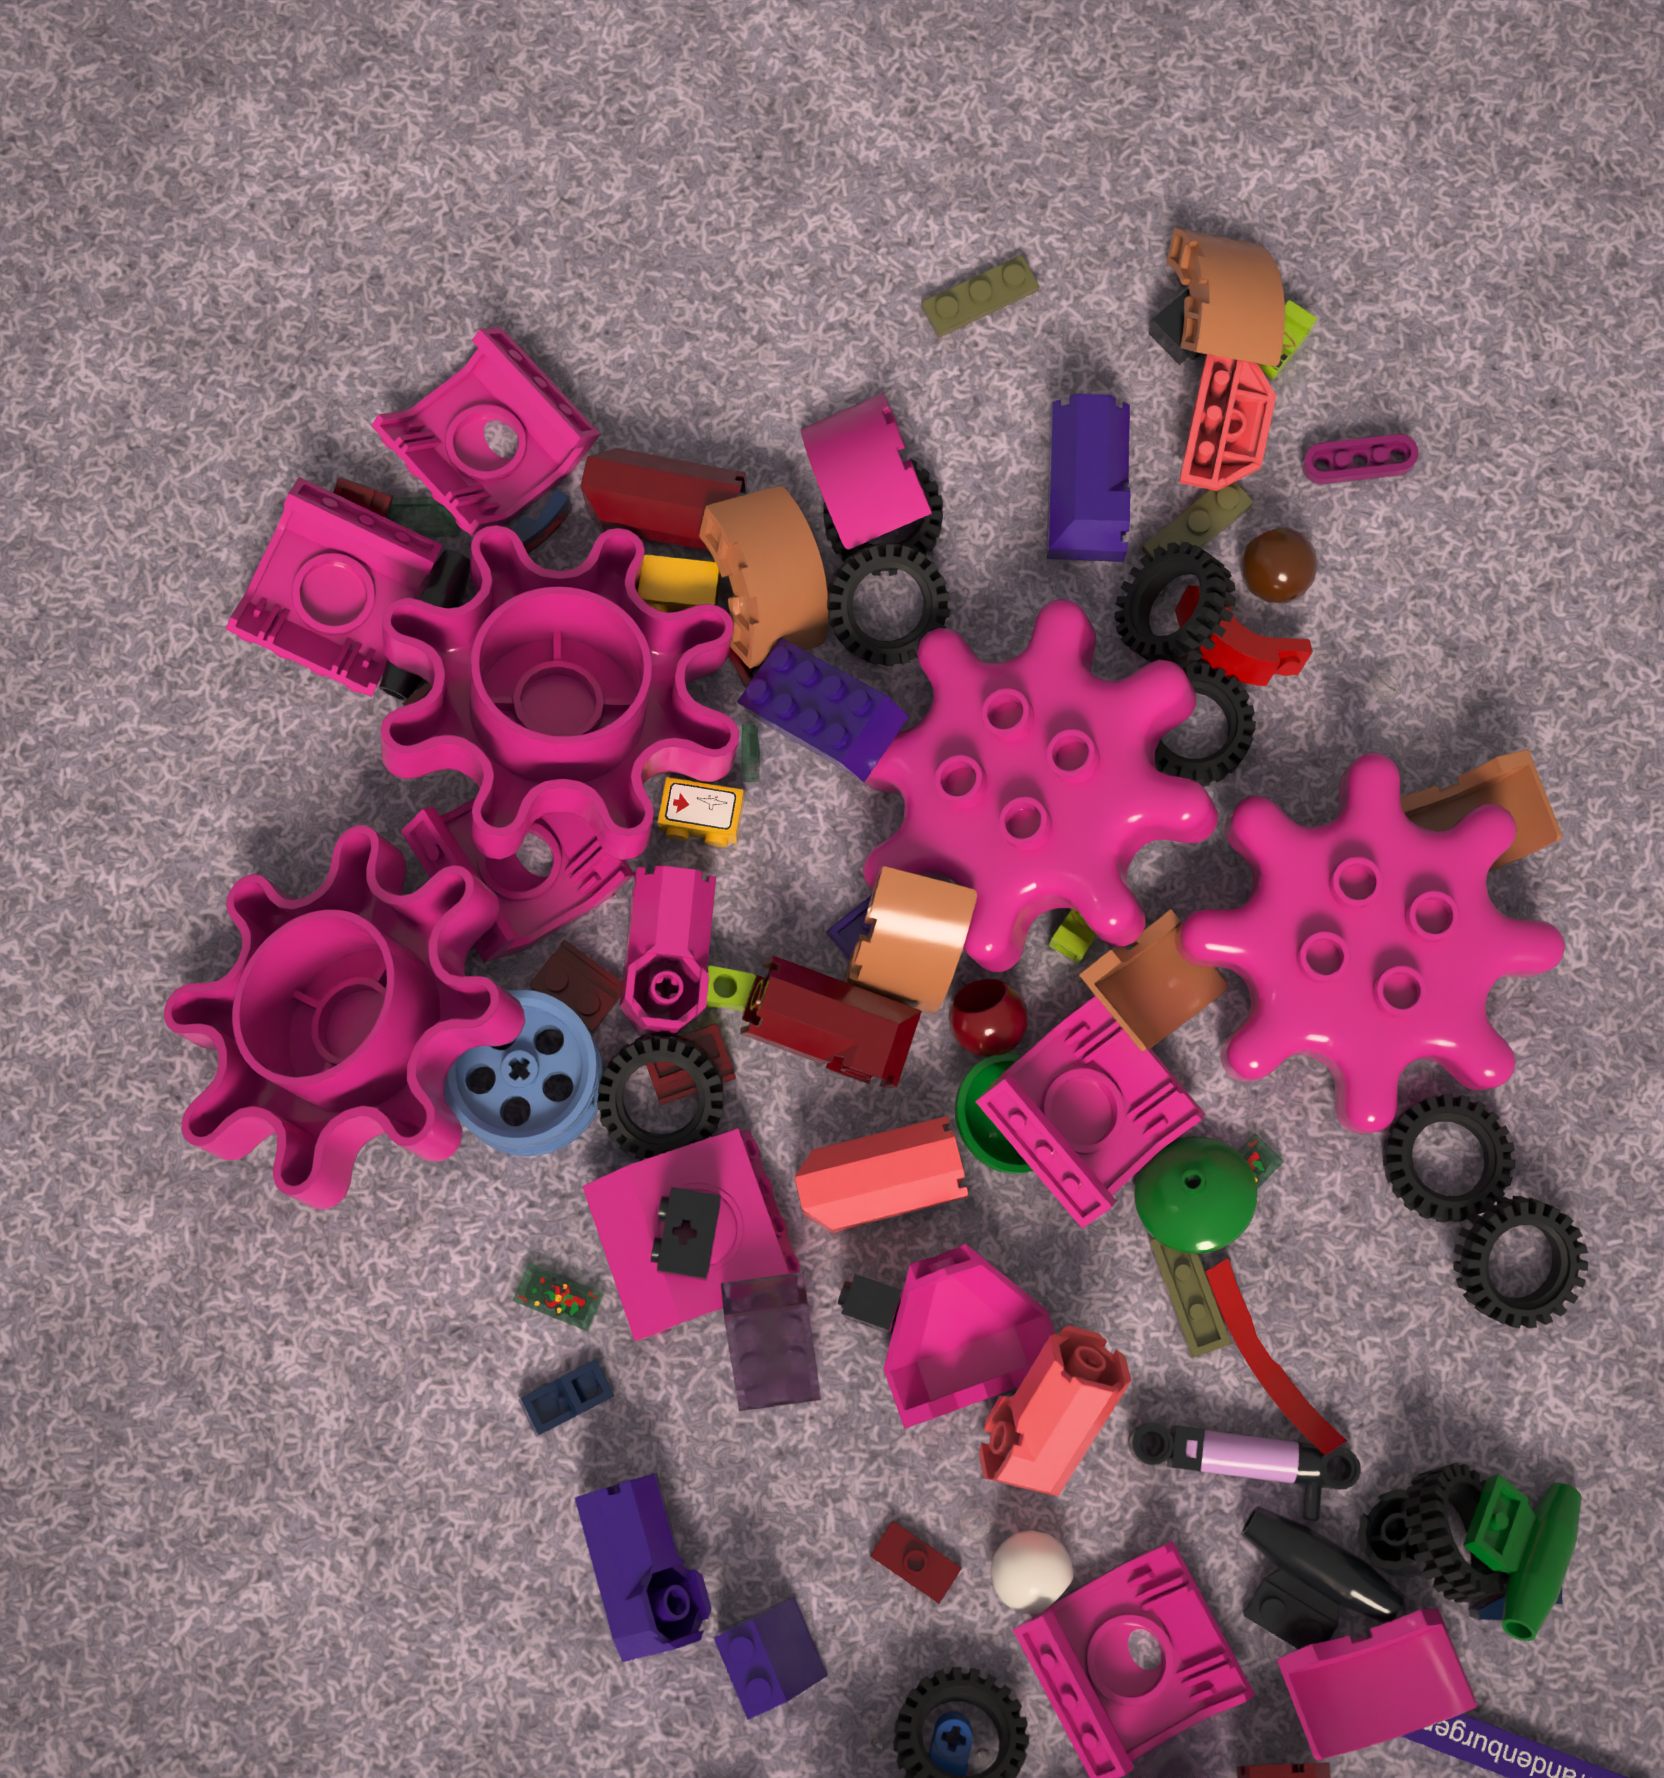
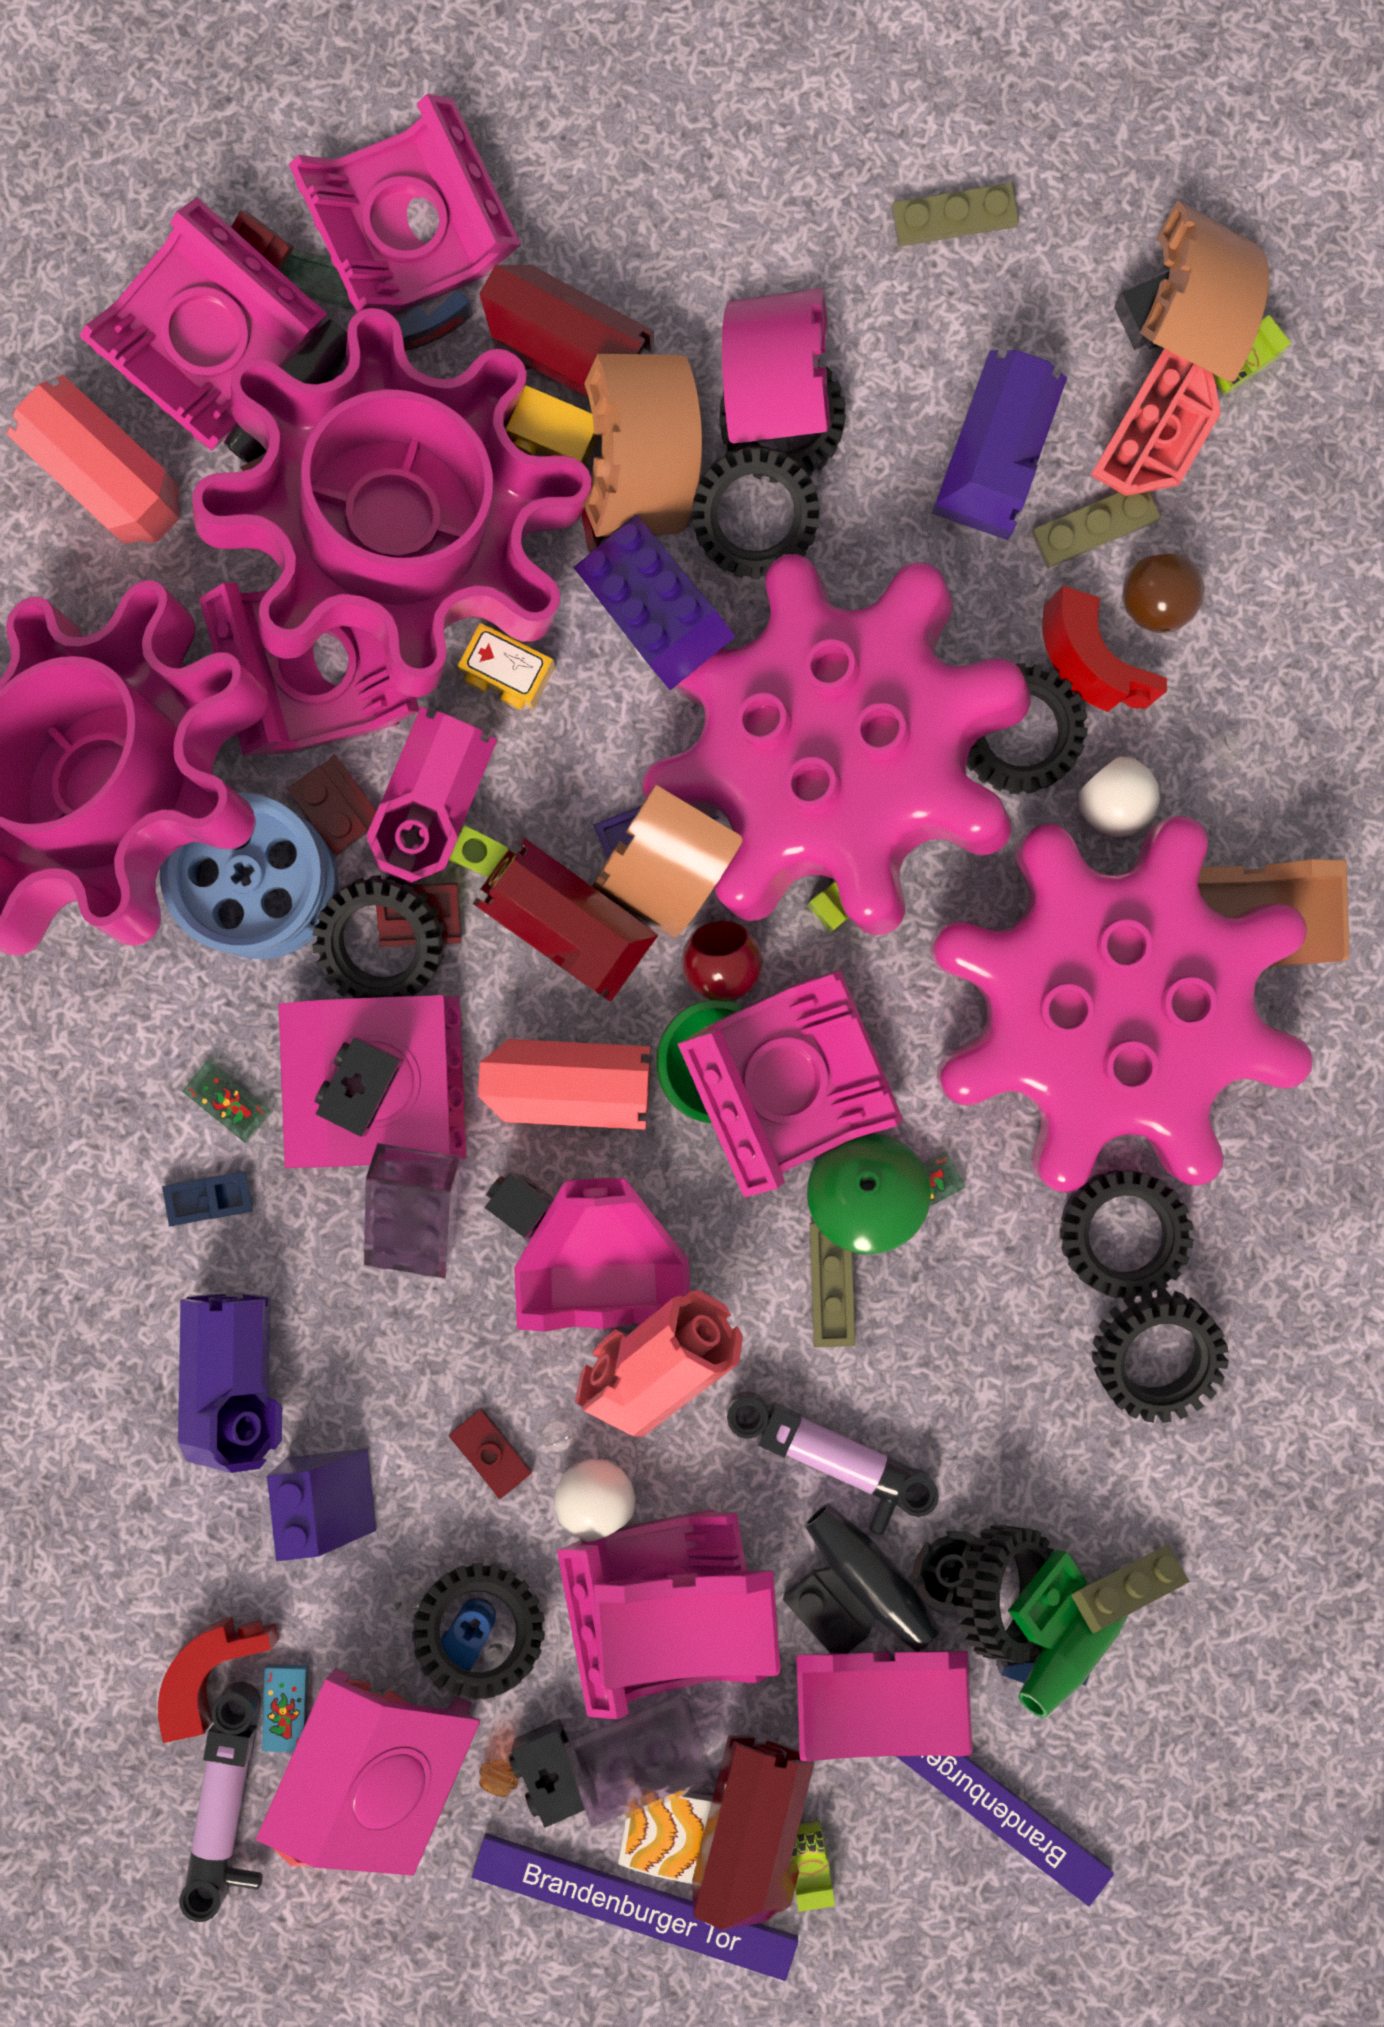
camera: 20 degrees right, 10 degrees up
(267, 739) = (96, 462): none -> coral brick
(750, 753) = (570, 624): clear green tile -> none
(1149, 582) = (1068, 626): black tyre -> none
(1151, 985) = (891, 979): nougat panel -> none
(1164, 1663) = (686, 1627): none -> dark pink panel
(1265, 1369) = (880, 1376): red sticker -> none
(1304, 759) = (1120, 798): none -> white helmet
(1374, 451) = (1301, 504): magenta plate -> none
(1571, 1493) = (1130, 1588): none -> olive plate

